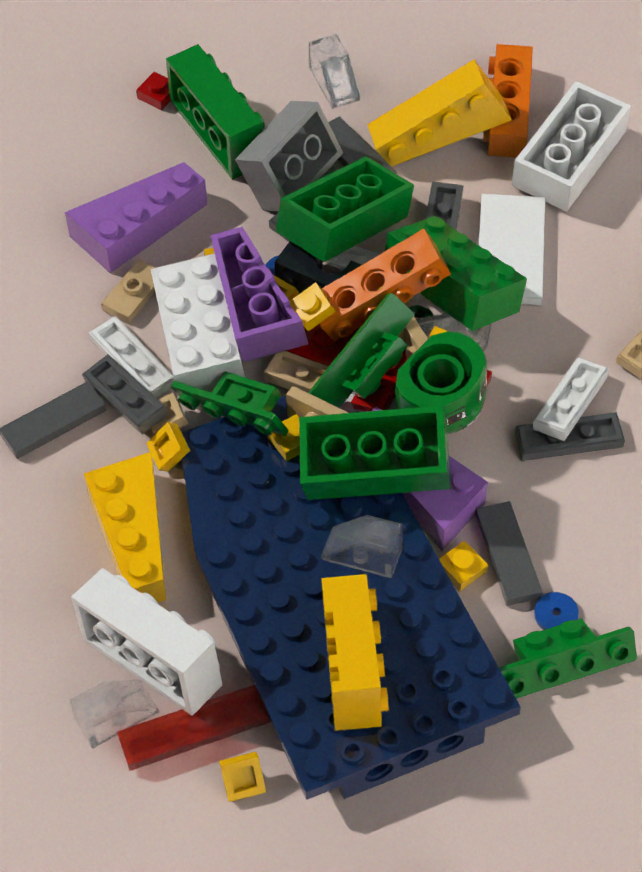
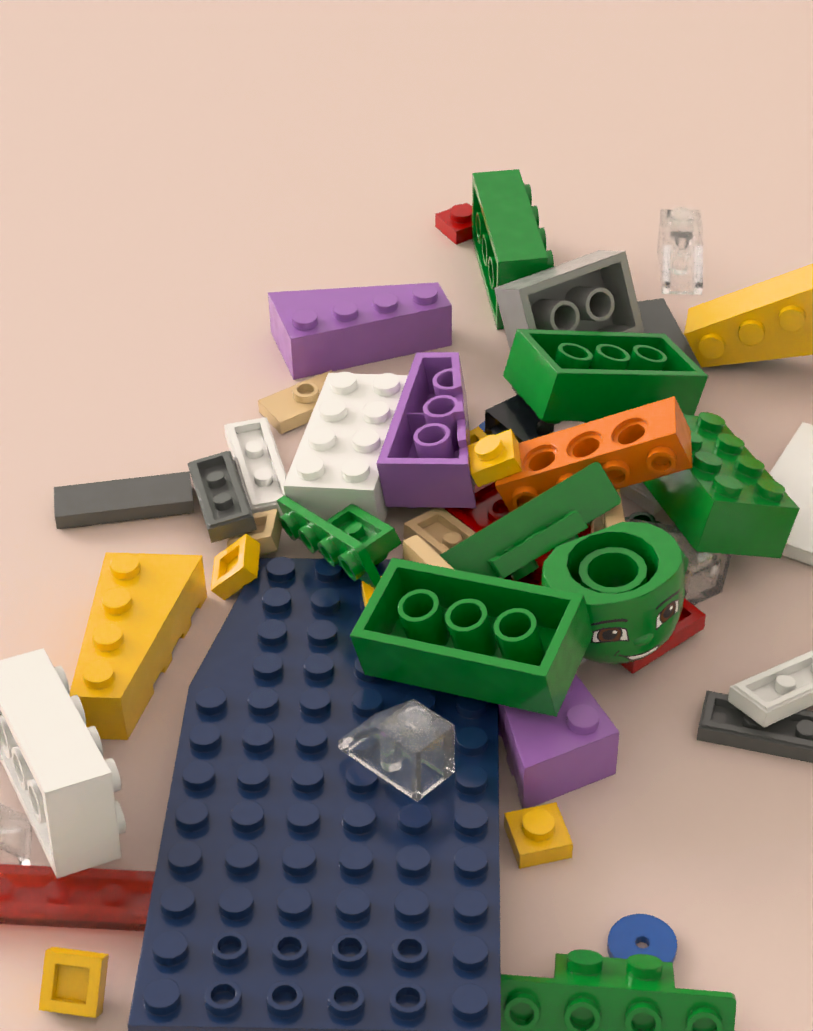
camera: 25 degrees right, 15 degrees down
(352, 652) = (290, 865): yellow wedge -> none
(445, 202) = (750, 417): dark grey plate -> none
(508, 553) = (611, 844): dark grey tile -> none

